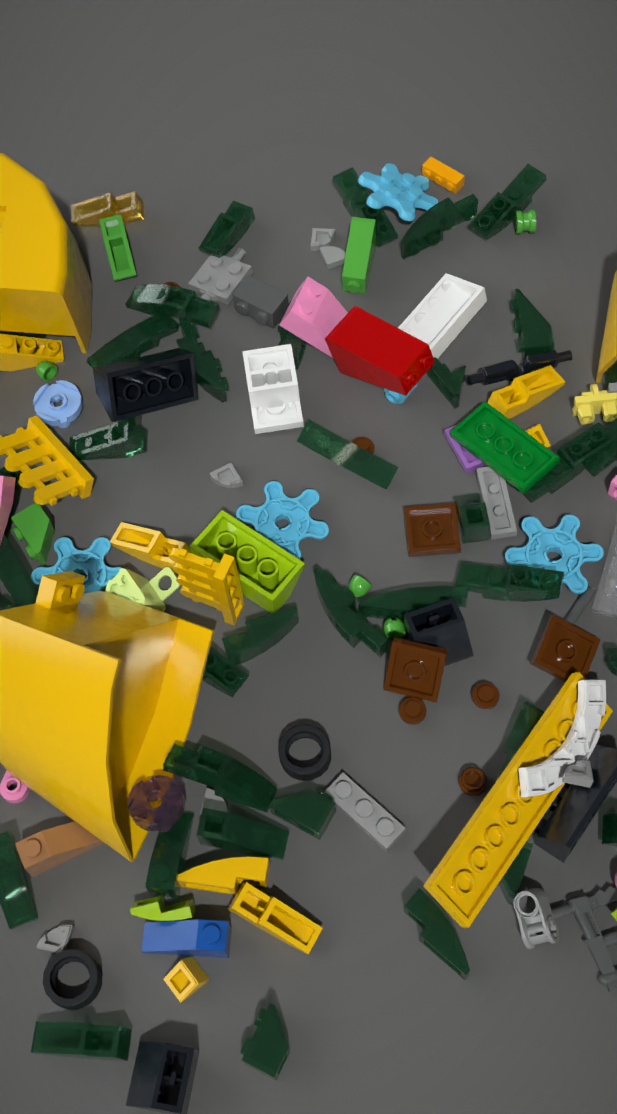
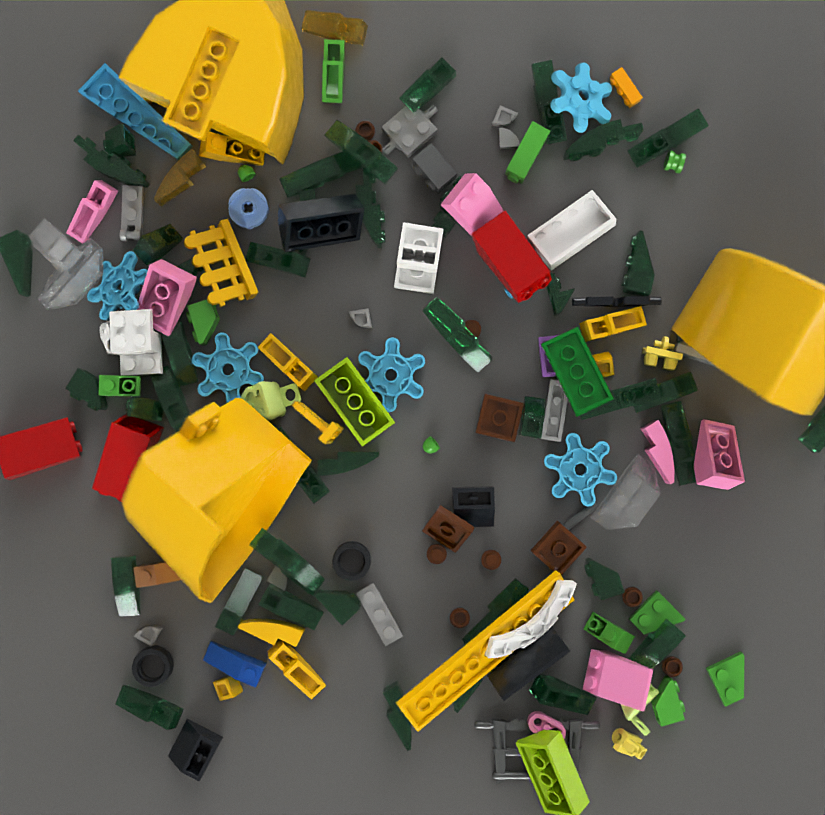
camera: 10 degrees right, 25 degrees up
(155, 909) = (224, 642): lime slope -> none
(161, 817) = (226, 568): plate -> none
(268, 1046) = (268, 750): clear green slope -> none
(340, 609) = (410, 457): clear green slope -> none
(394, 628) = (441, 487): bright green hinge -> none
(403, 601) = (457, 472): clear green slope -> none
(511, 584) = (539, 484): clear green slope -> none
(535, 920) = (466, 726): light grey piece -> none
(579, 774) = (530, 649): light grey tile -> none

